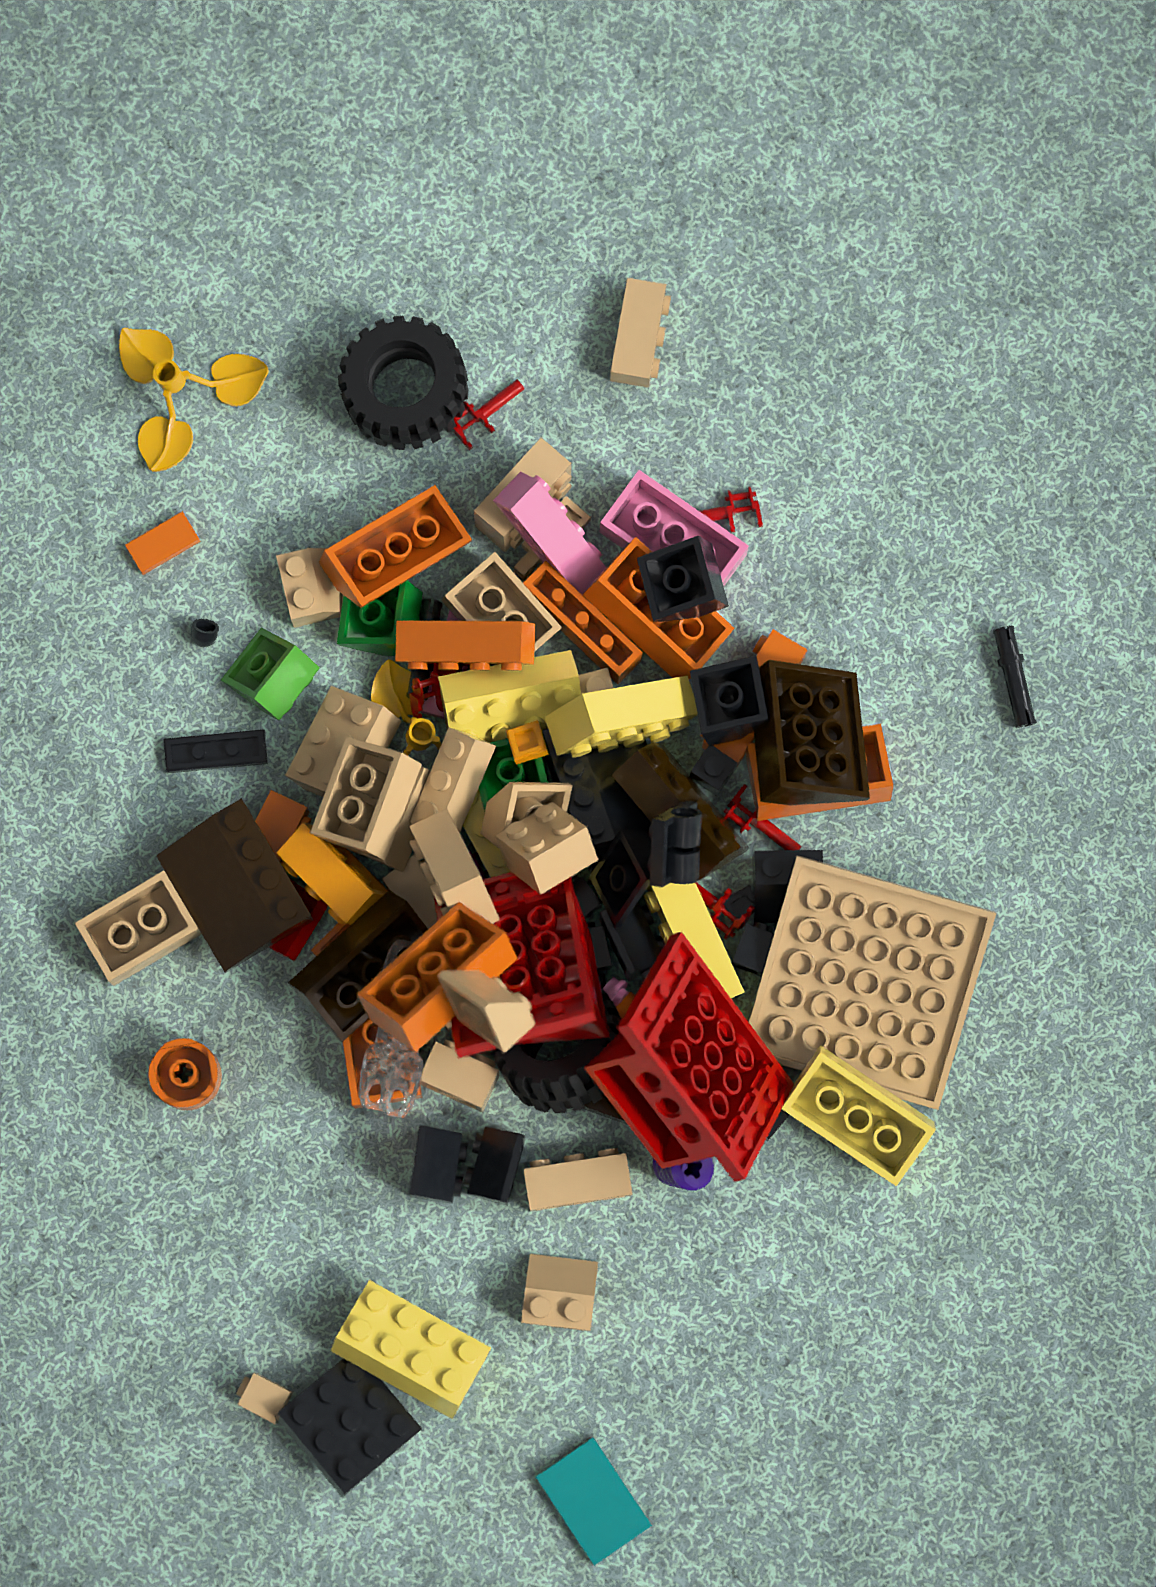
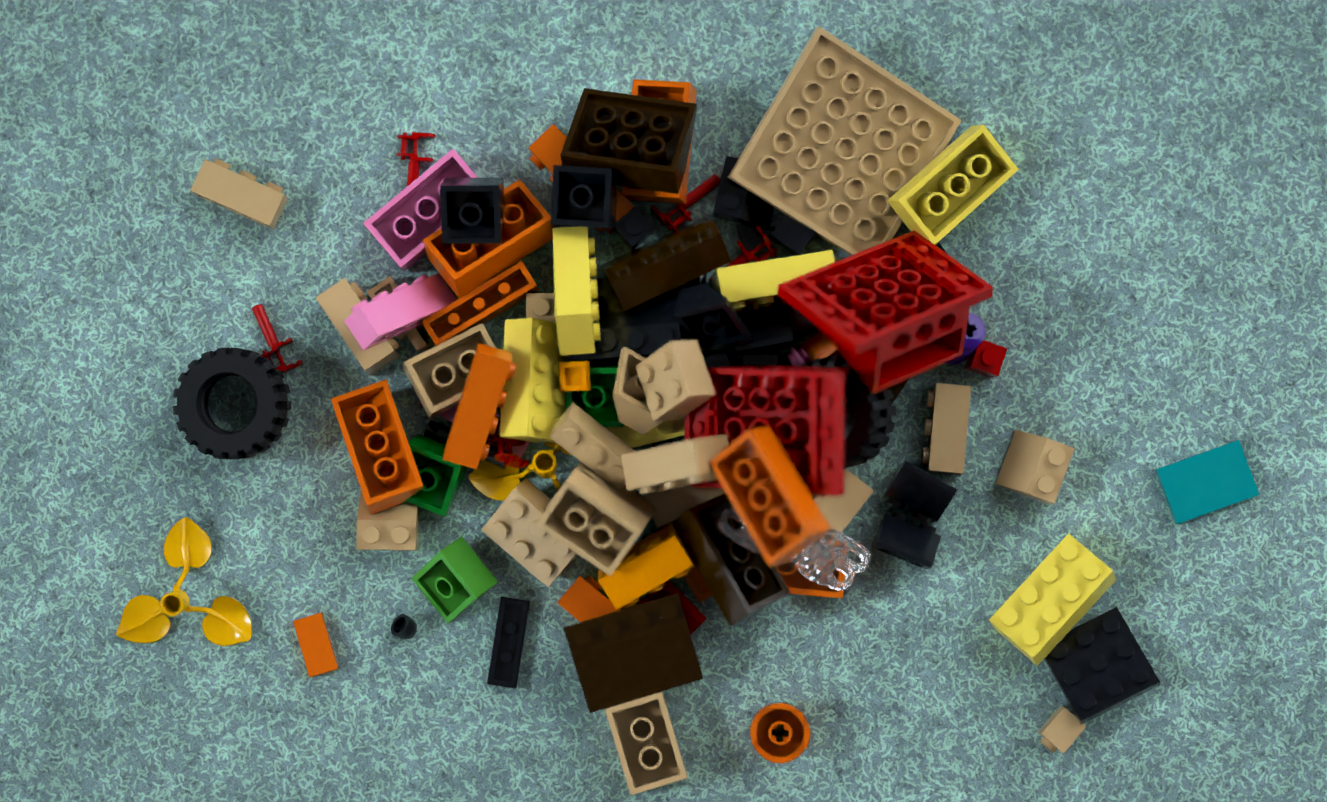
camera: 75 degrees left, 5 degrees up
(487, 1006) = (810, 458): tan slope -> none
(669, 1204) = (986, 359): none -> red brick
(675, 845) = (703, 270): black plate -> none

